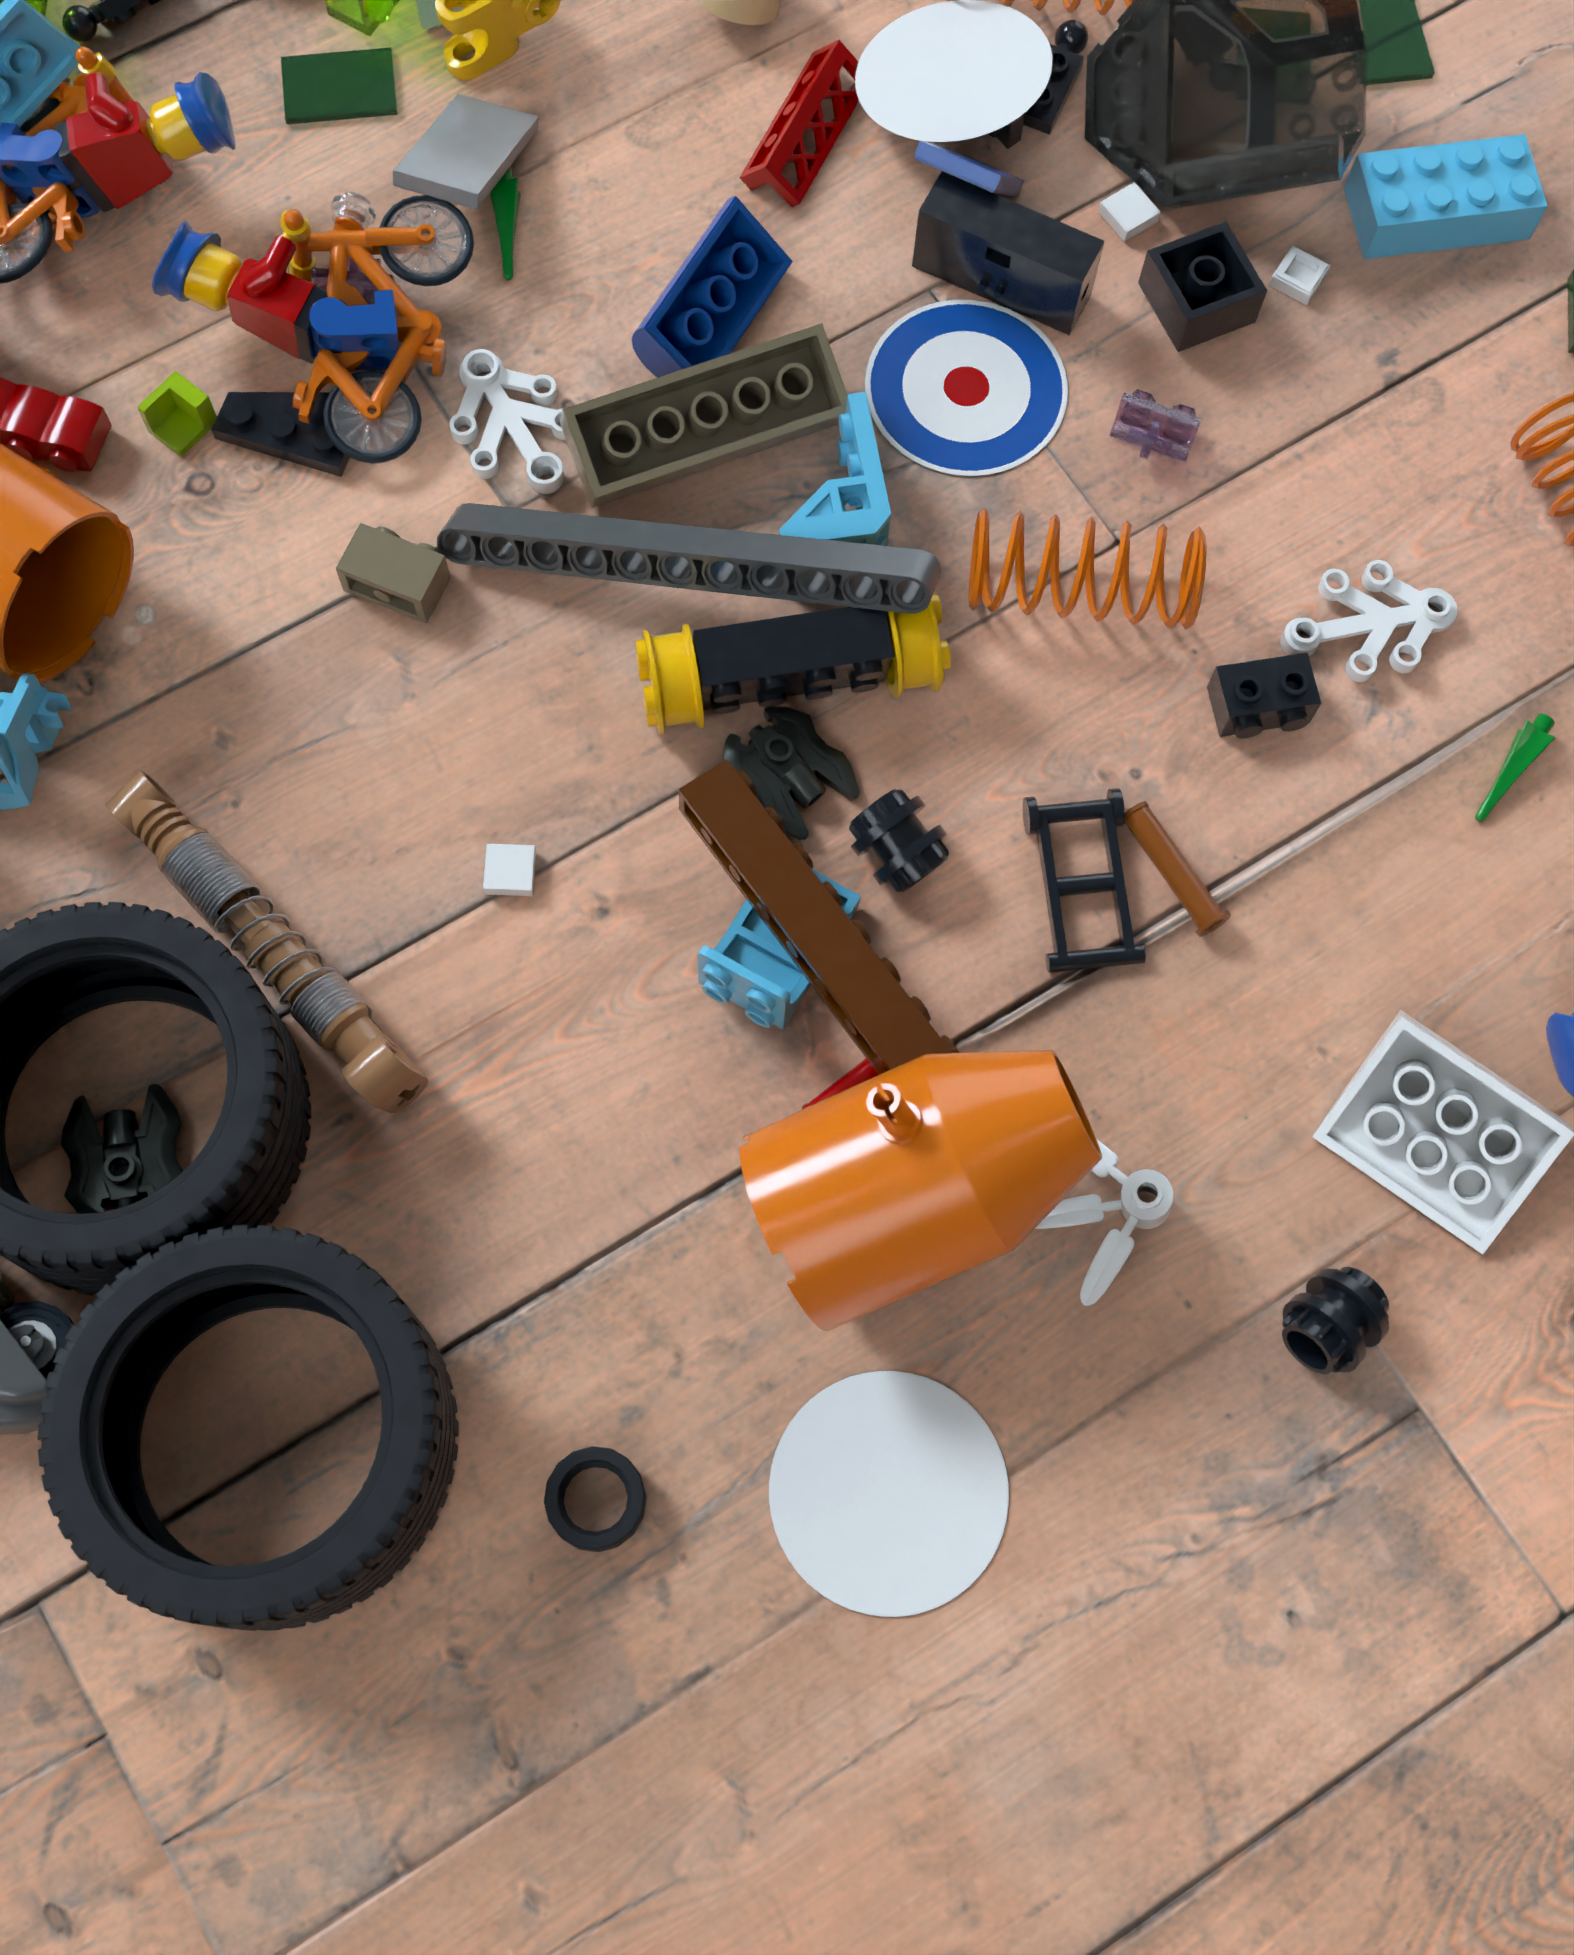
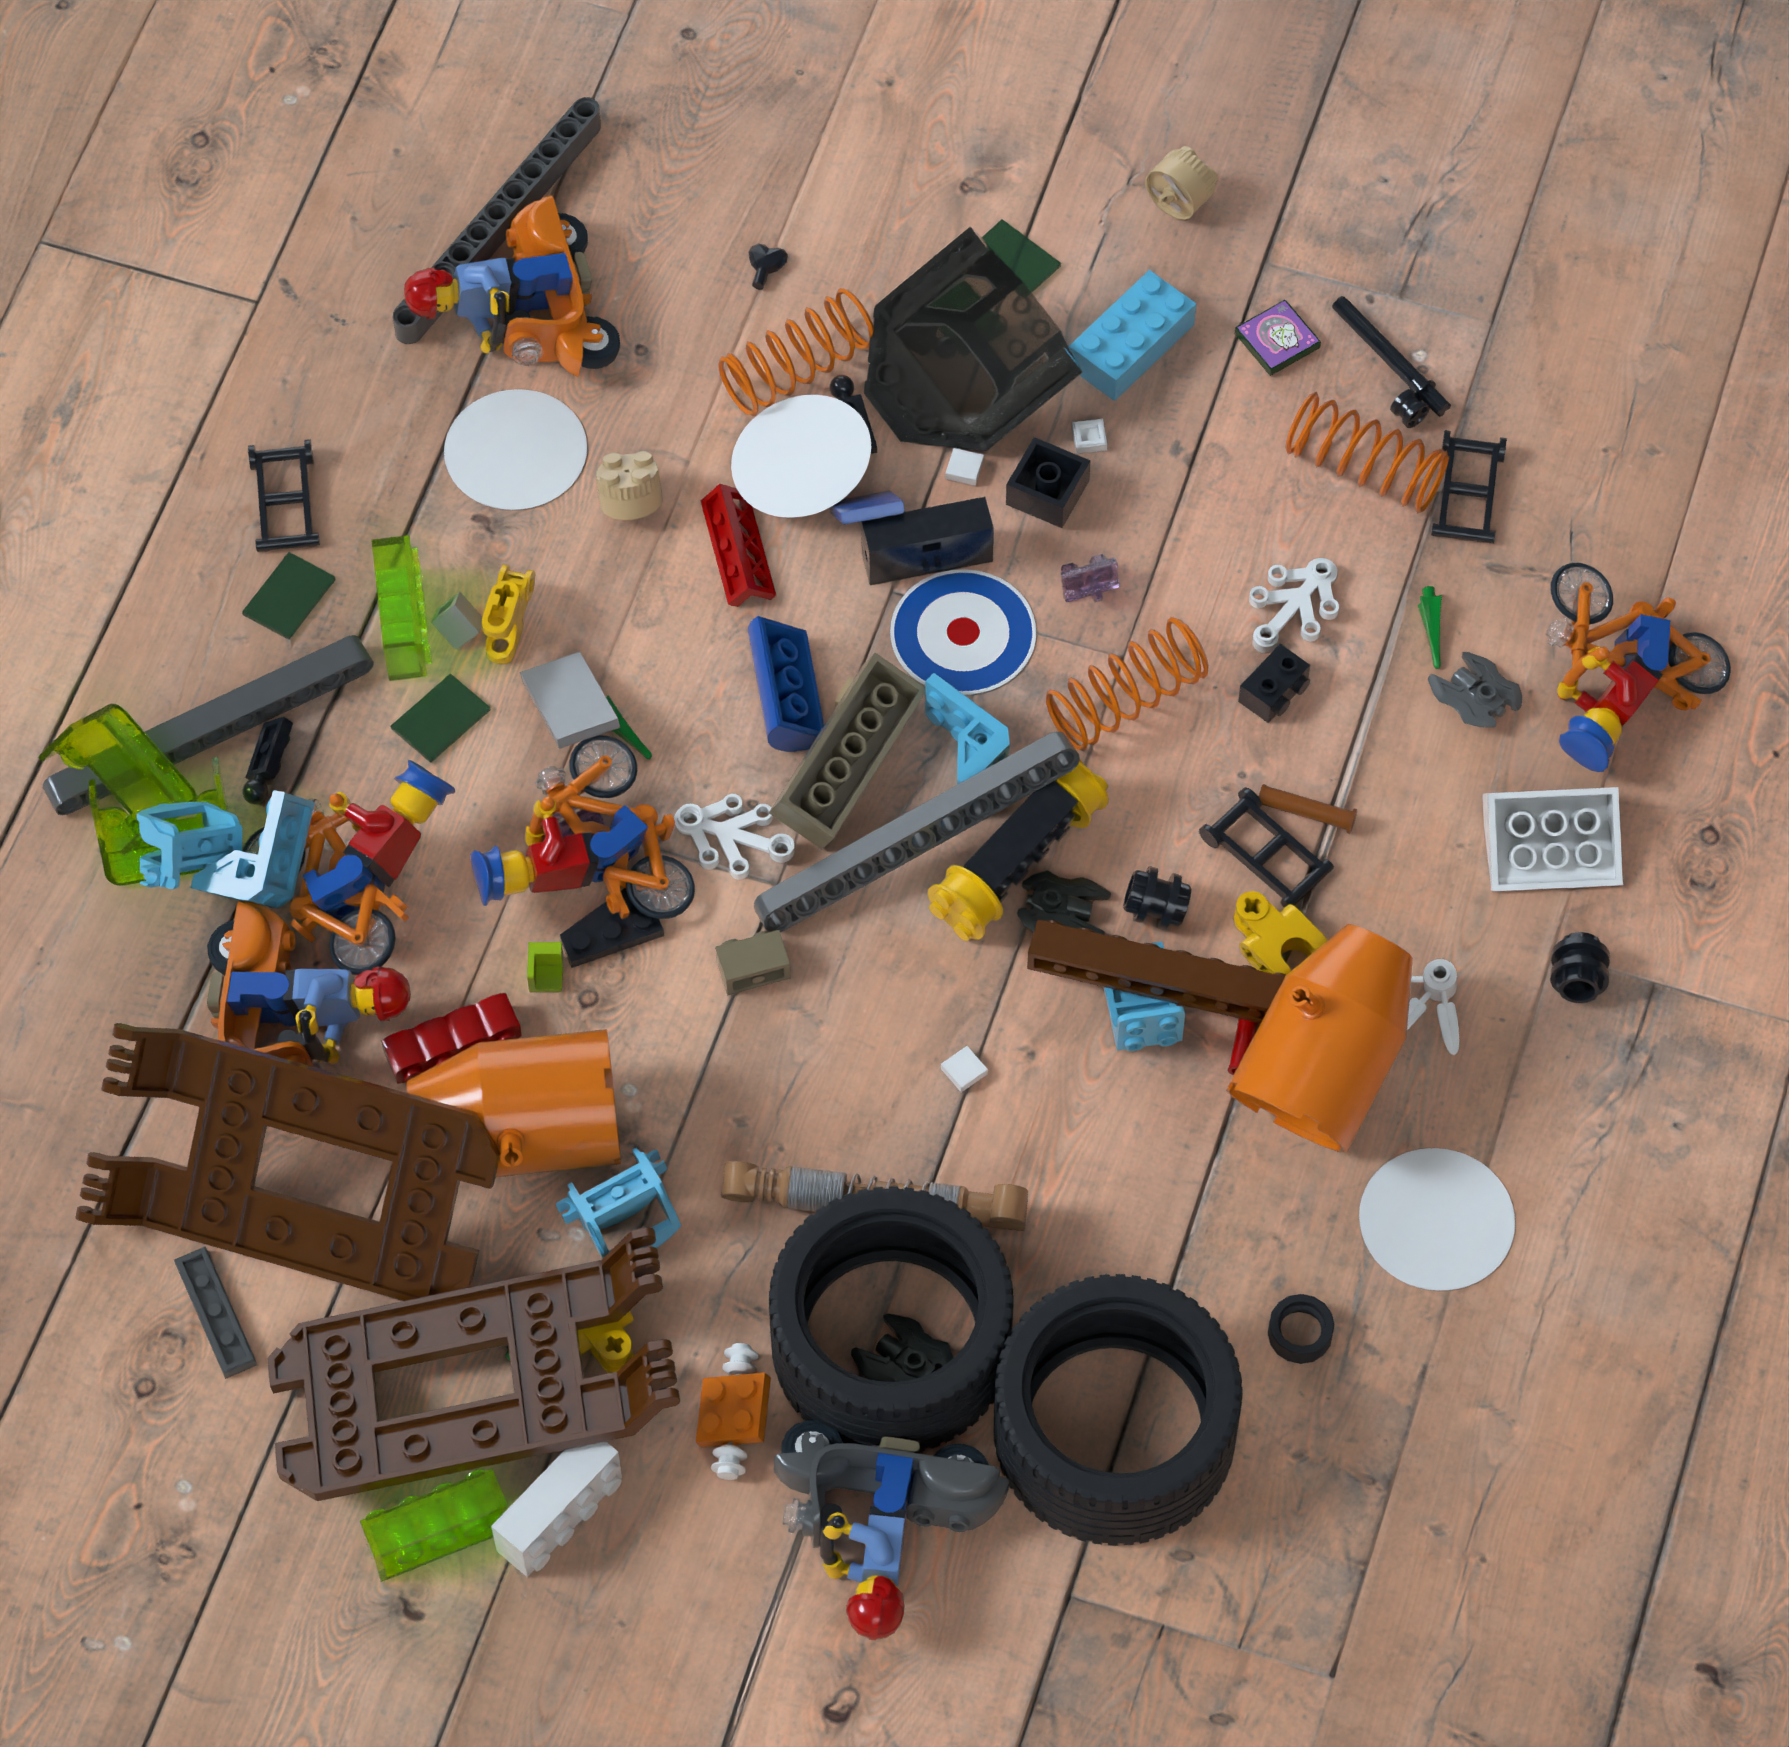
camera: 35 degrees left, 10 degrees down
(999, 987) = (1273, 932): none -> yellow piece
(1500, 886) = (1477, 692): none -> dark grey piece

